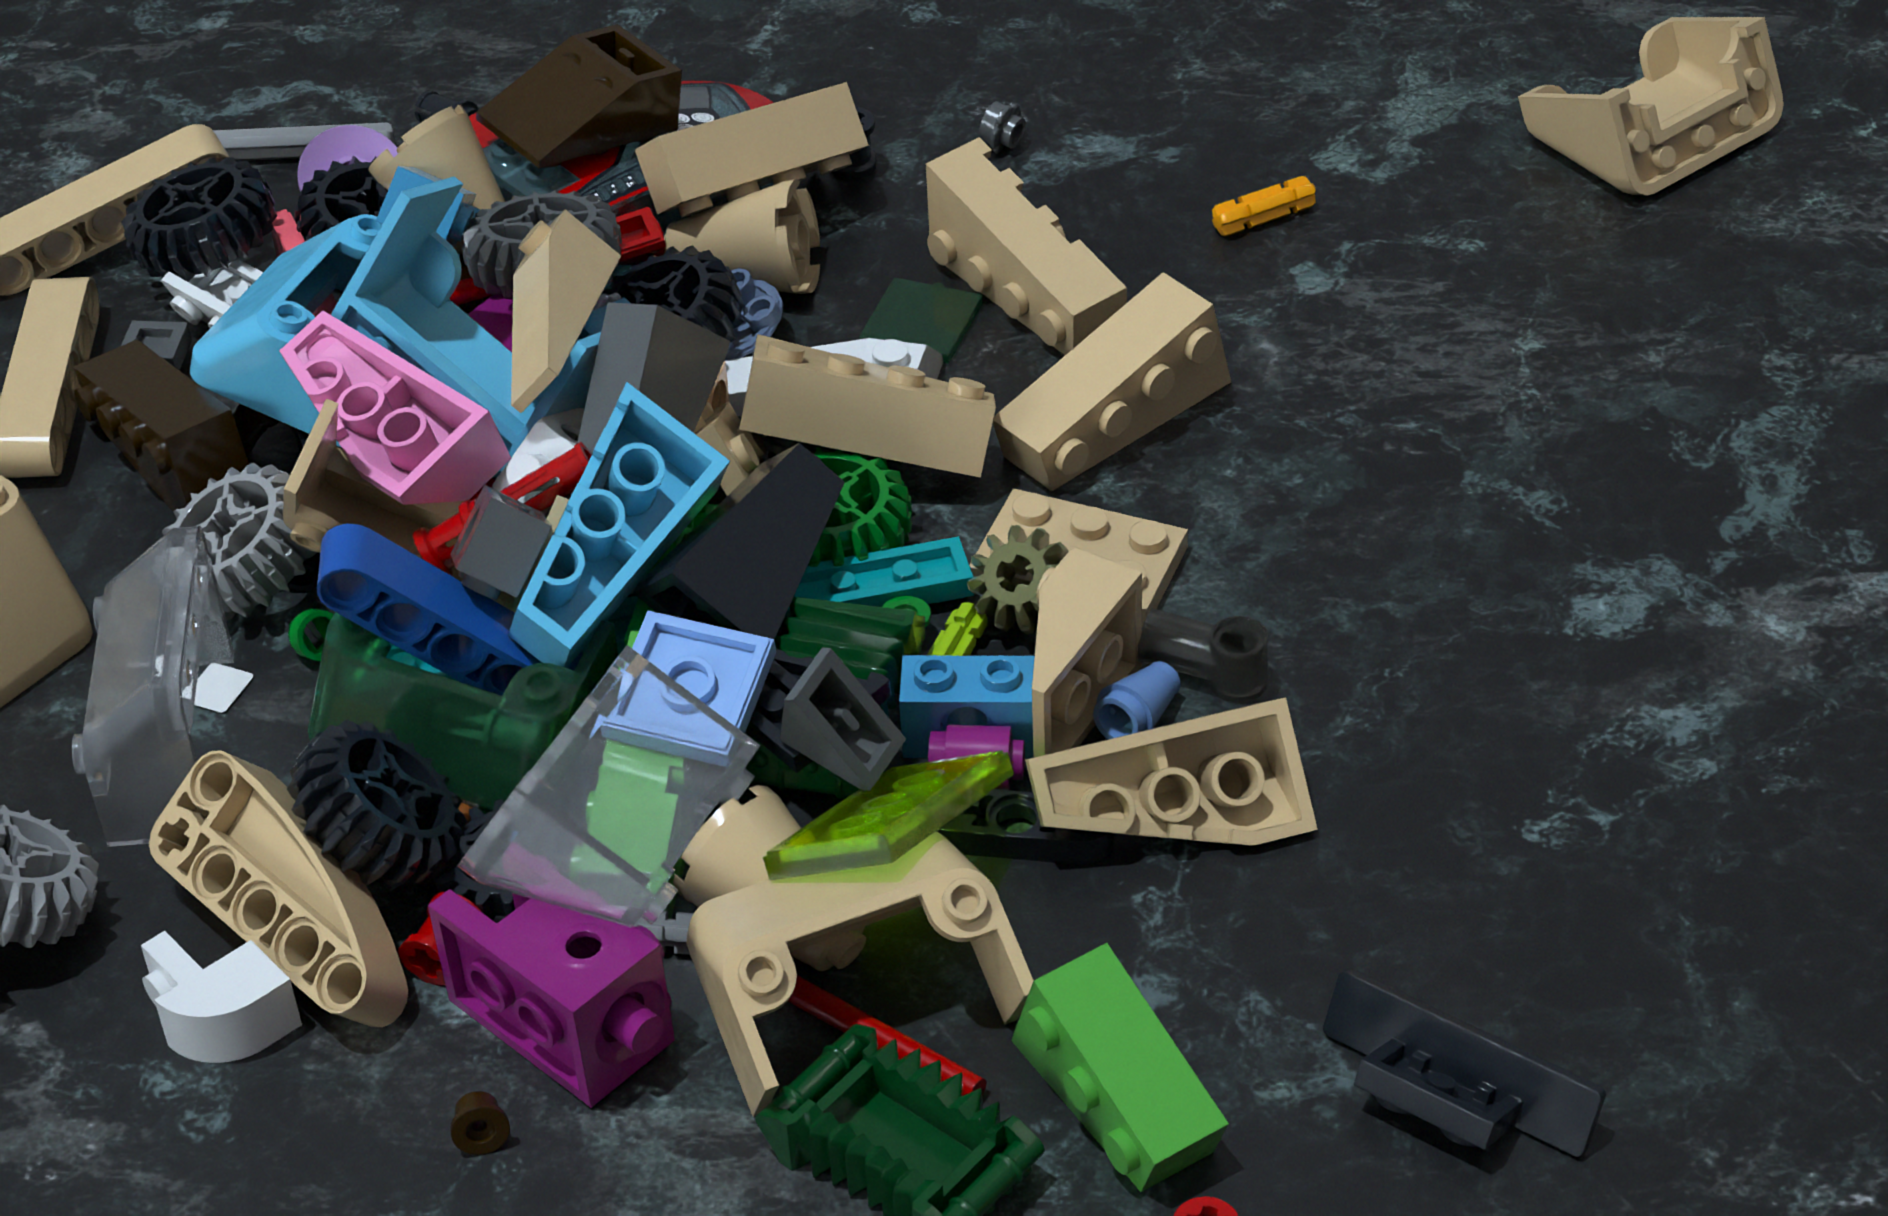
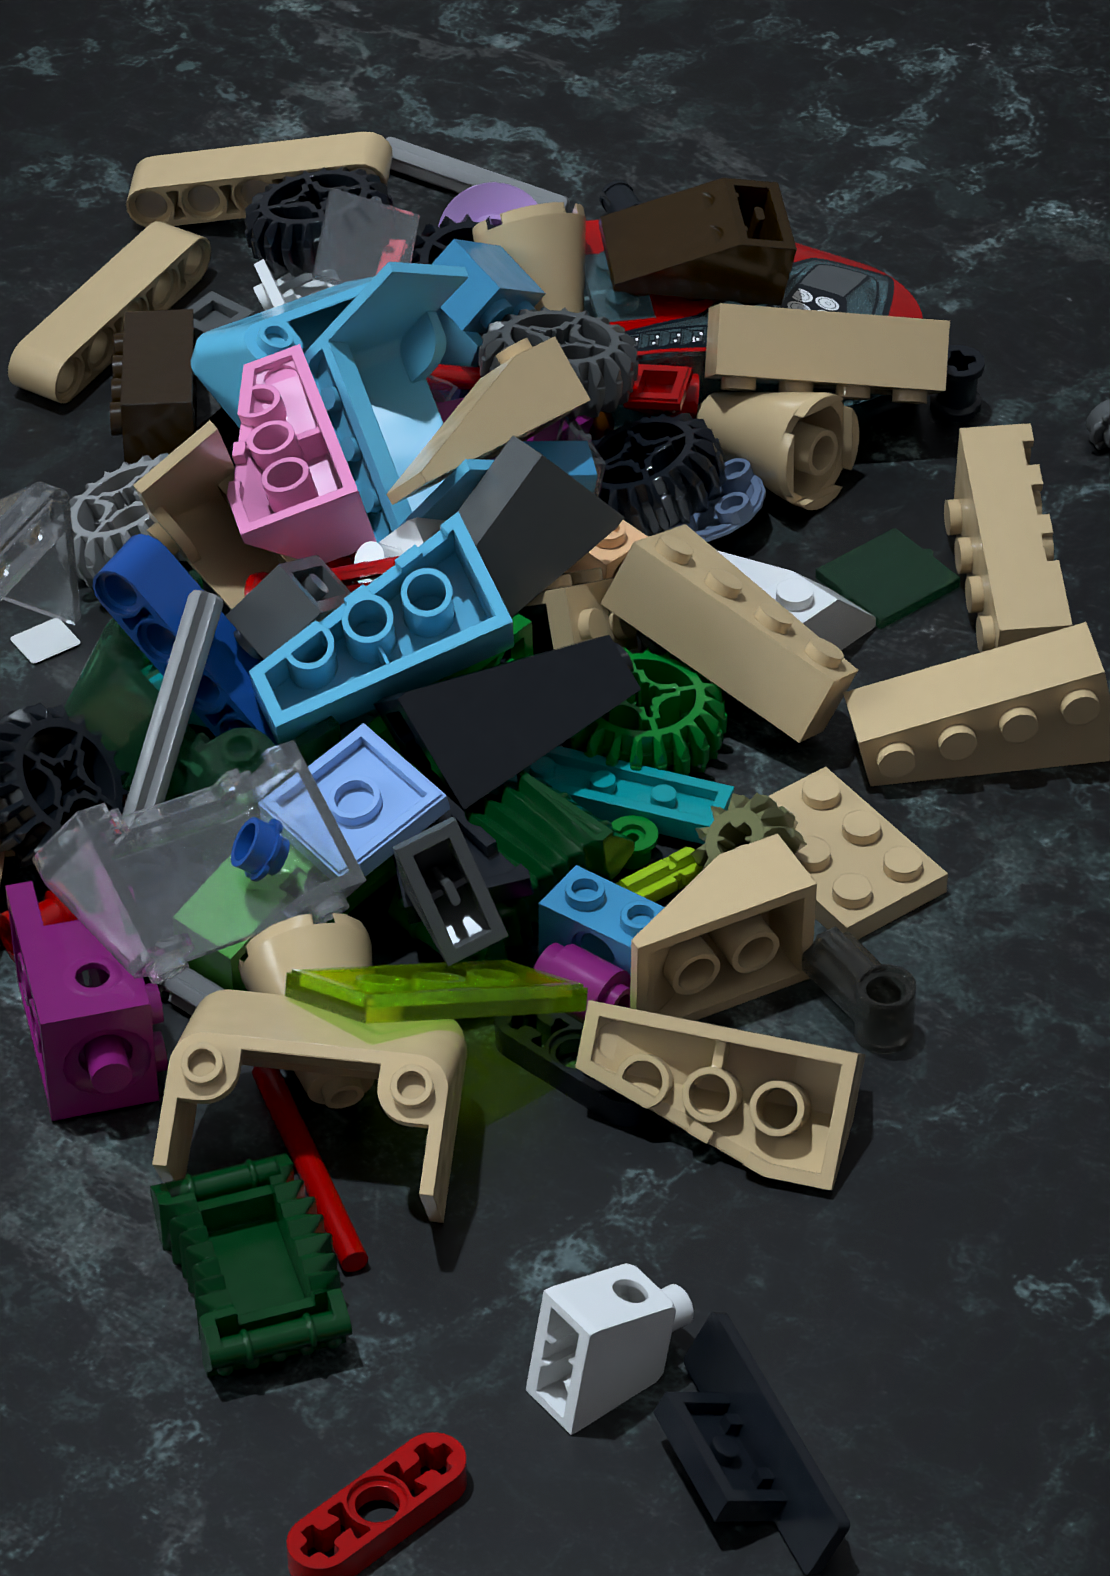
camera: 30 degrees right, 0 degrees up
(265, 215) = (362, 237): none -> clear piece
(458, 683) = (175, 701): none -> light grey axle
(644, 760) = (260, 848): none -> blue plate
(1118, 1068) = (459, 1296): bright green wedge -> none
(1136, 700) = (766, 1002): medium blue cone -> none
(1268, 1018) = (602, 1342): none -> white torso

